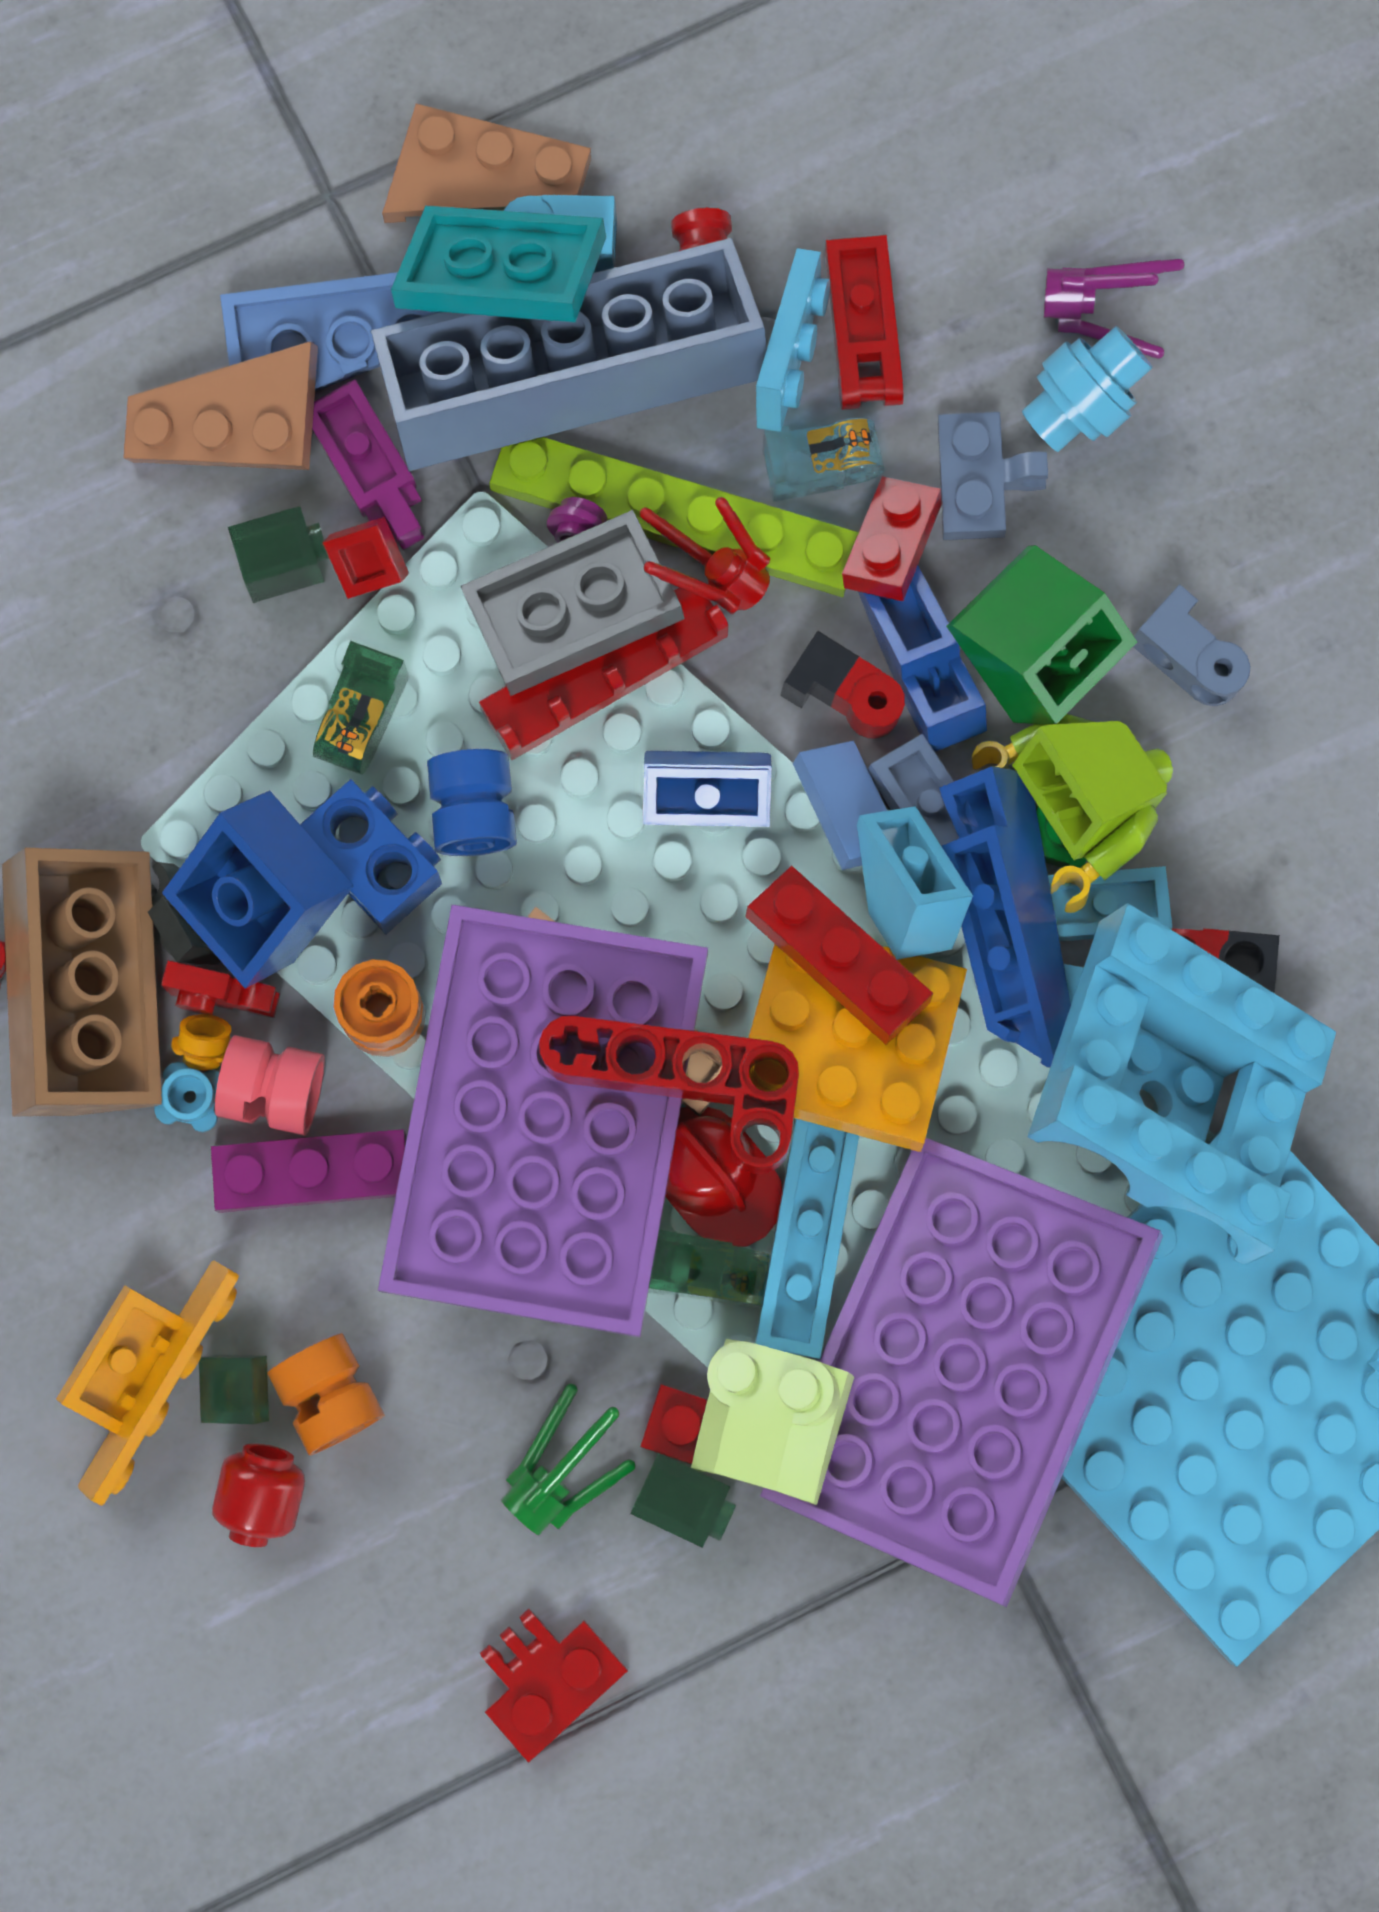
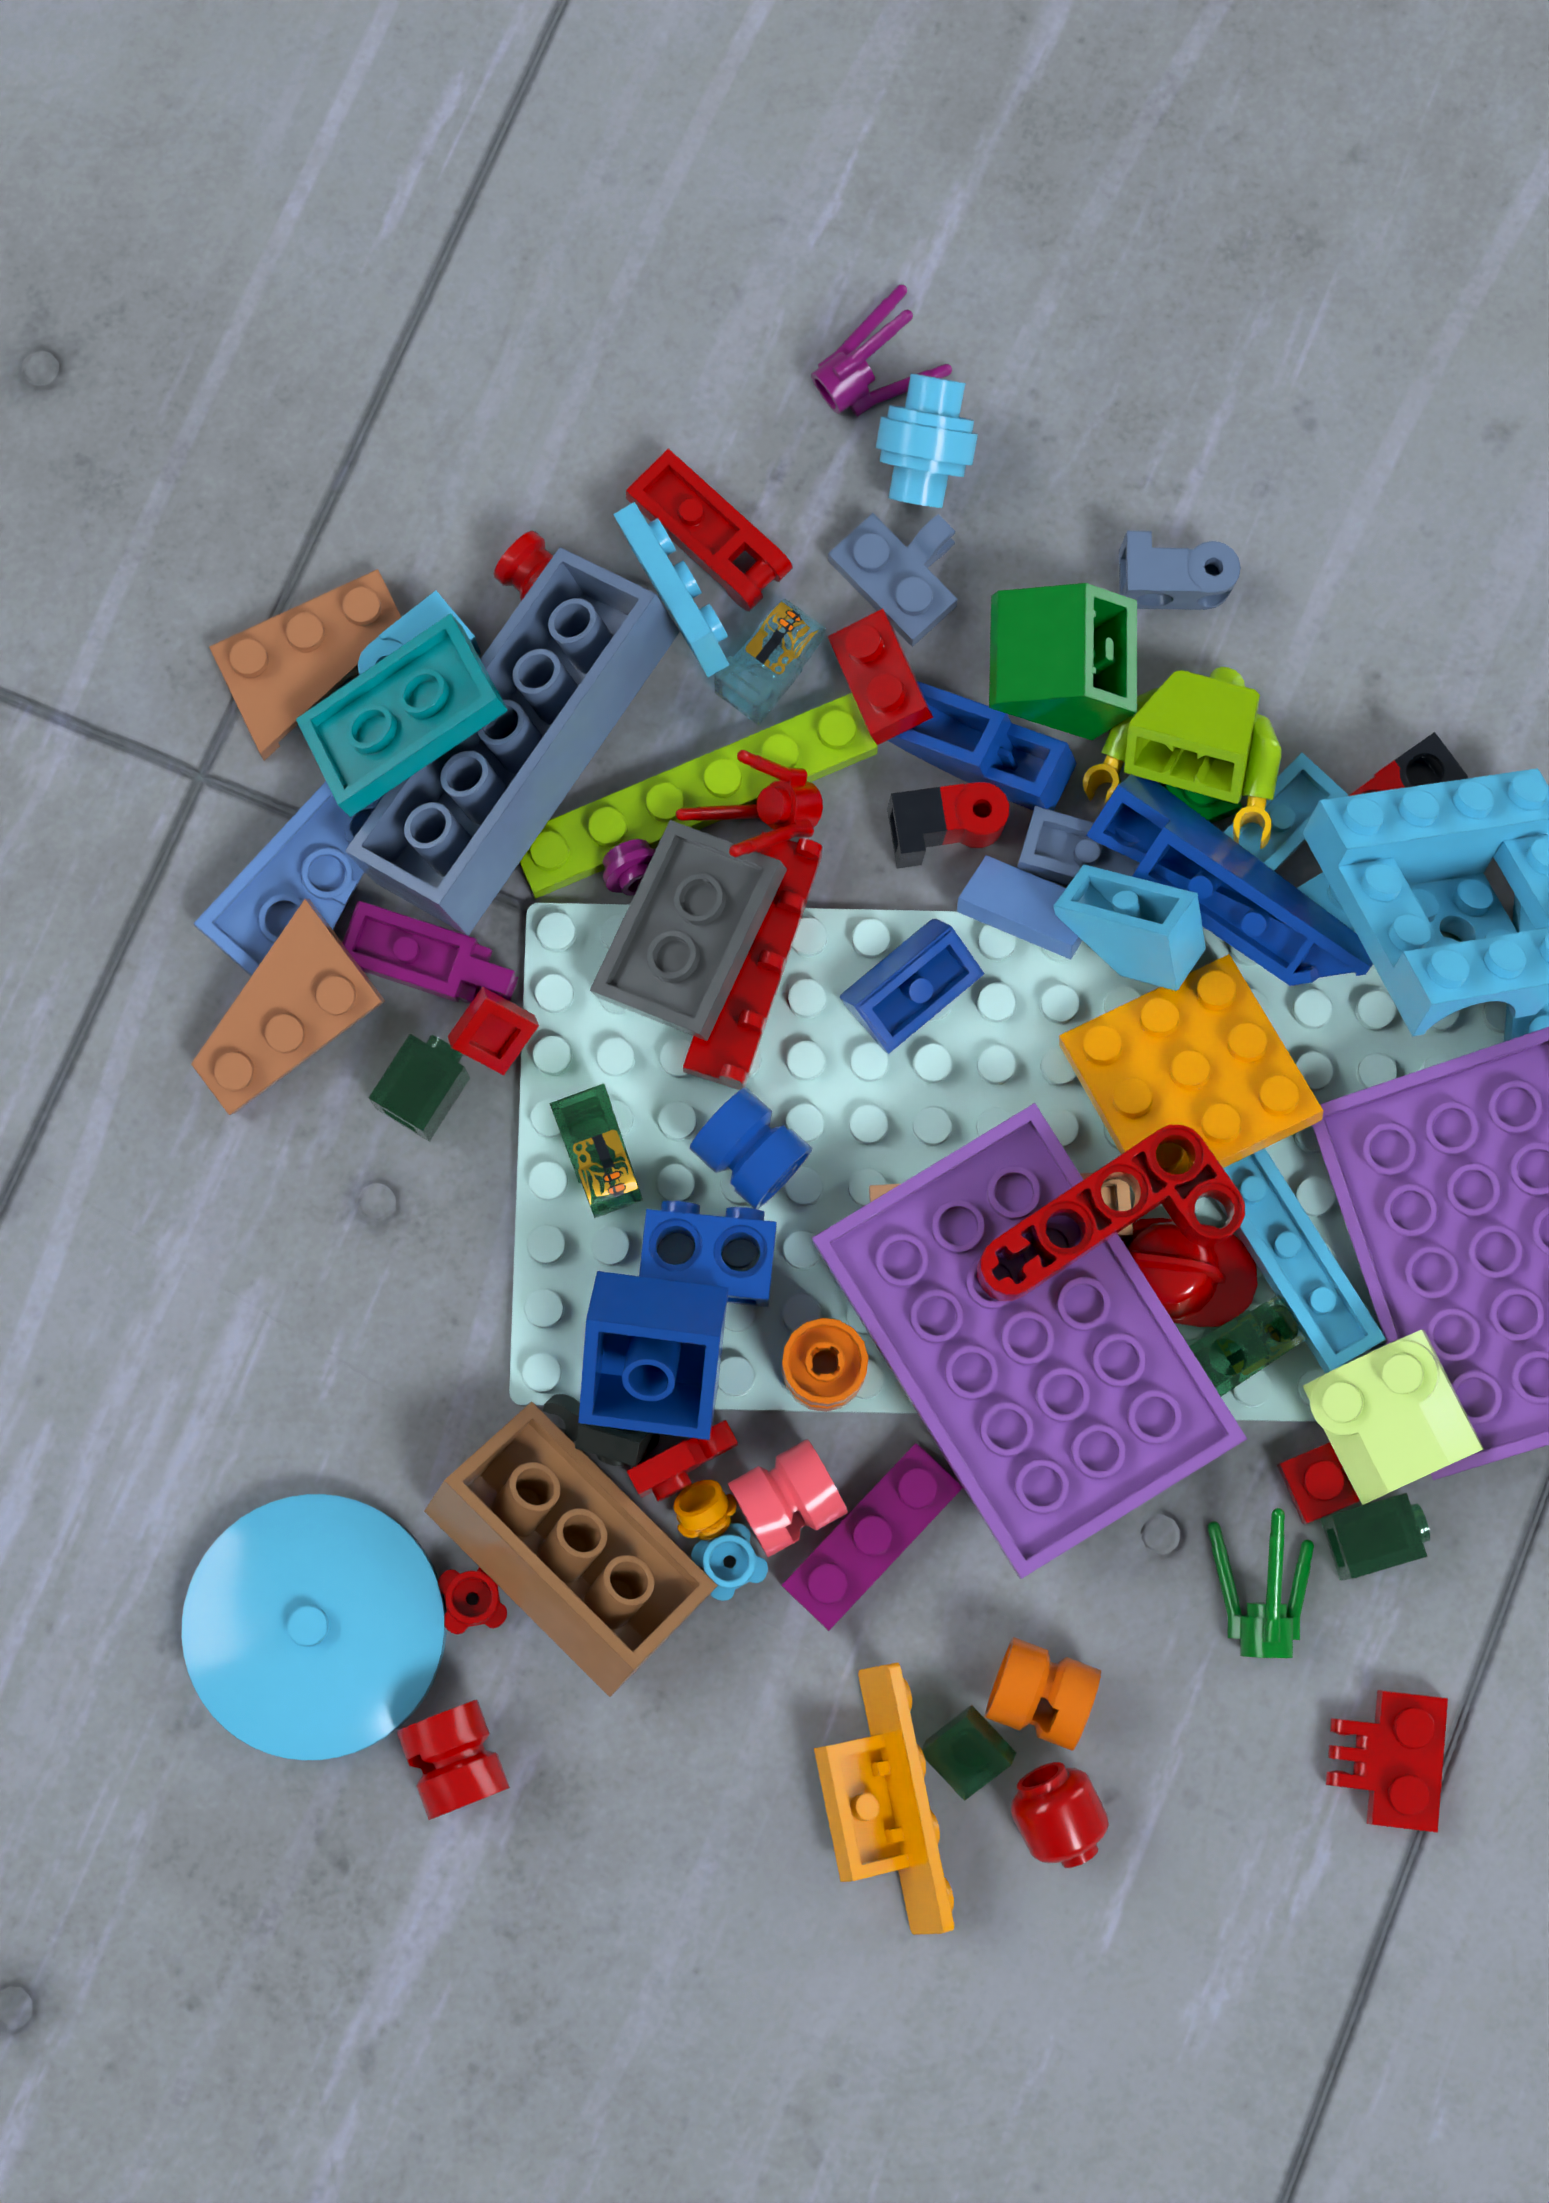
camera: 40 degrees left, 0 degrees up
(839, 955) = (1132, 1024): red plate -> none

